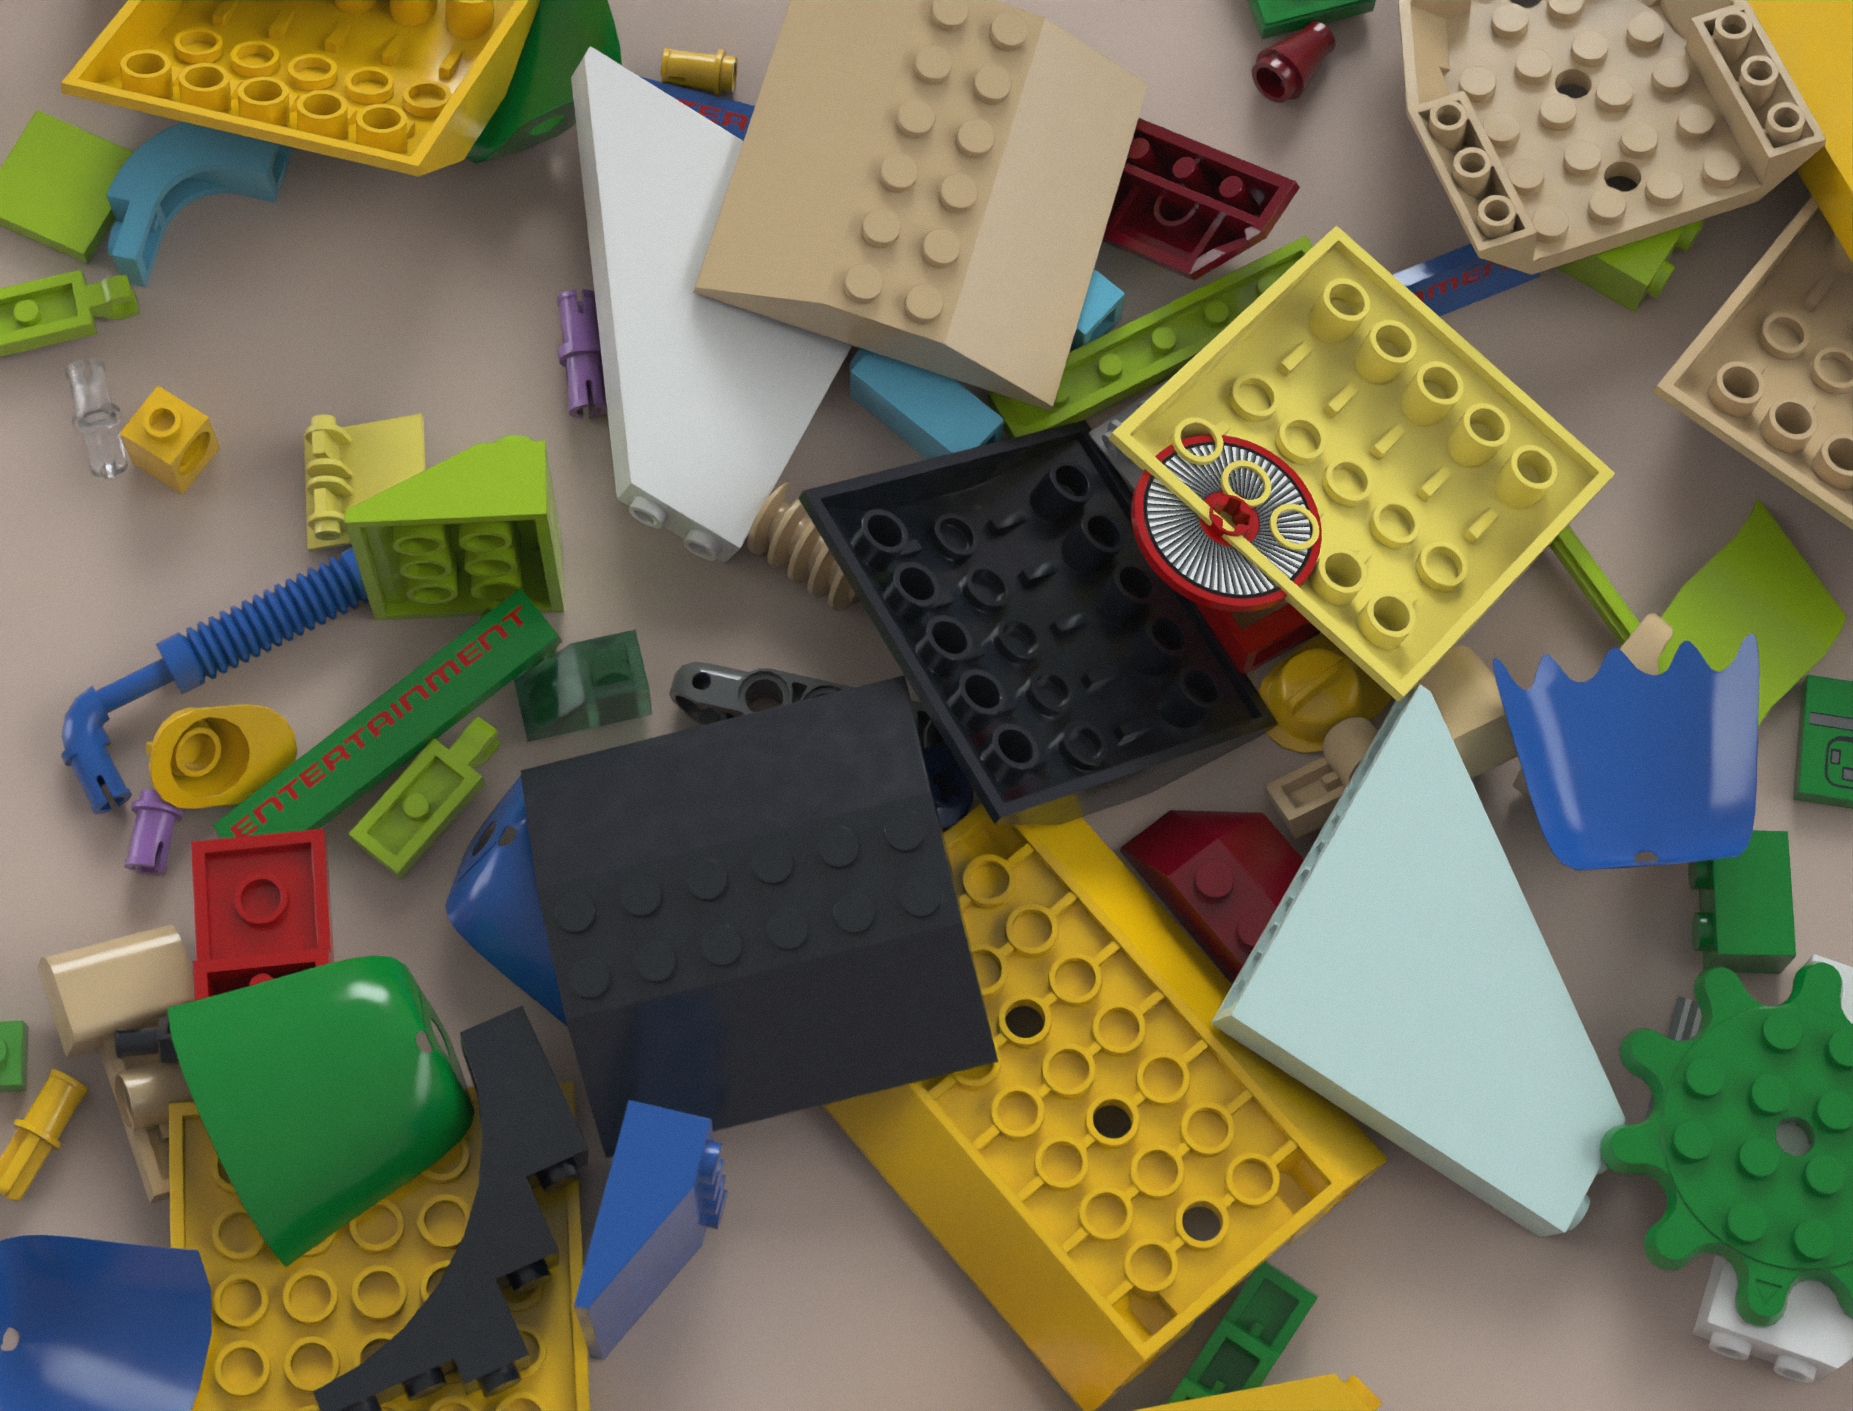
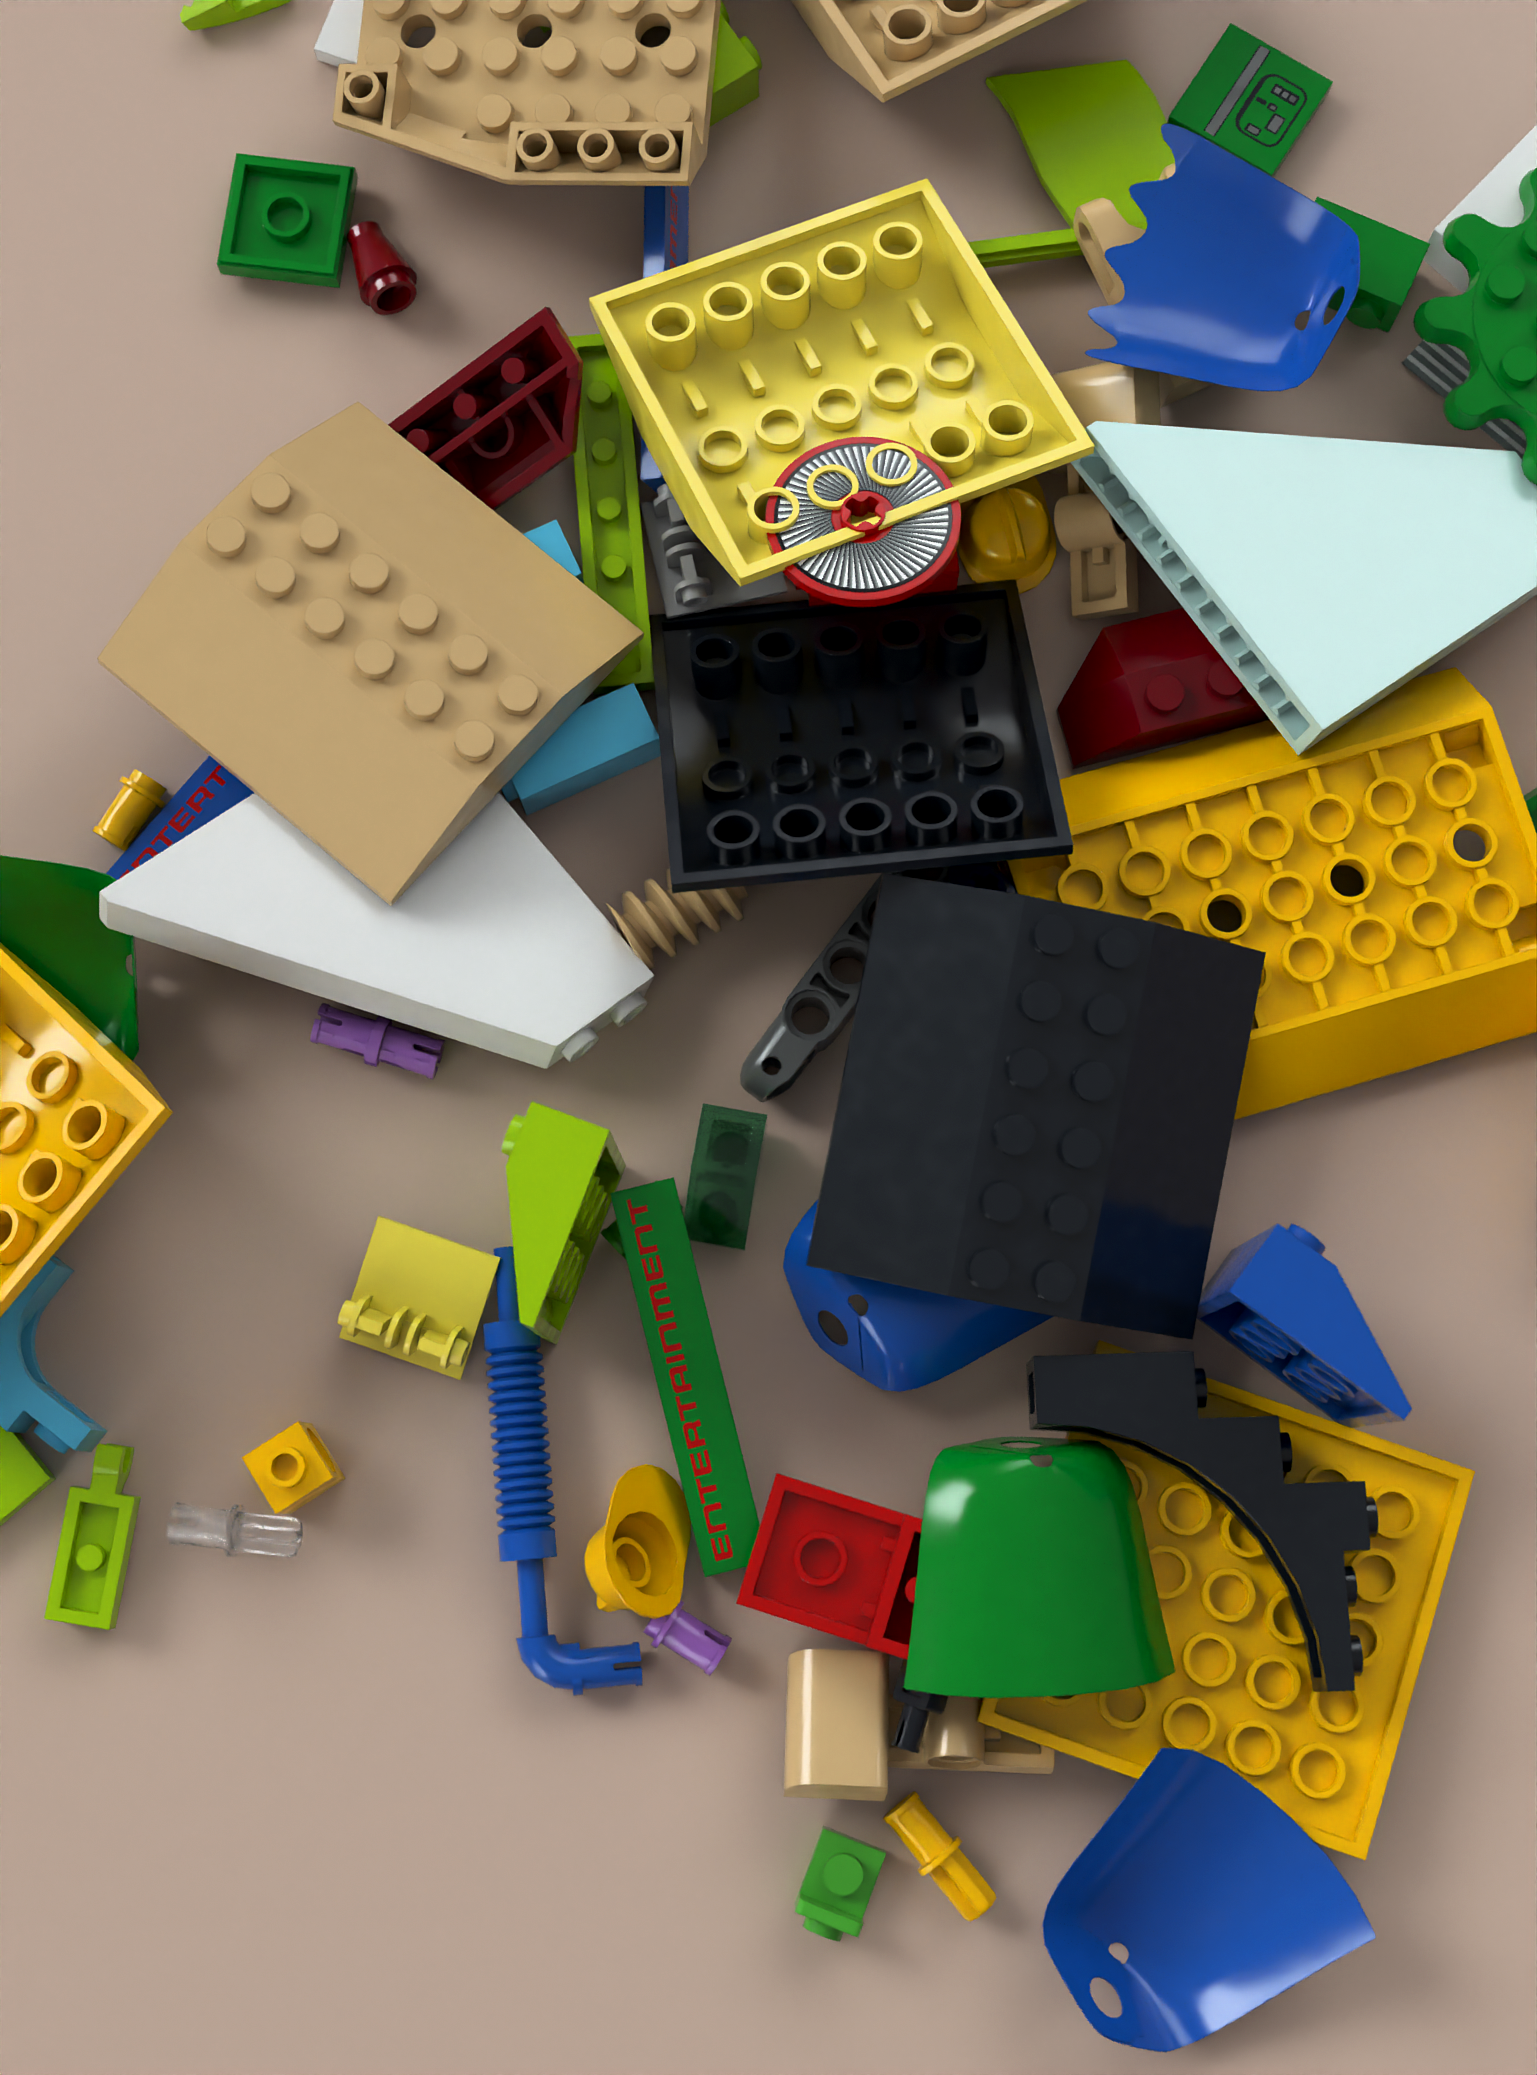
camera: 60 degrees left, 10 degrees up
(426, 799) = (767, 1368): lime plate -> none

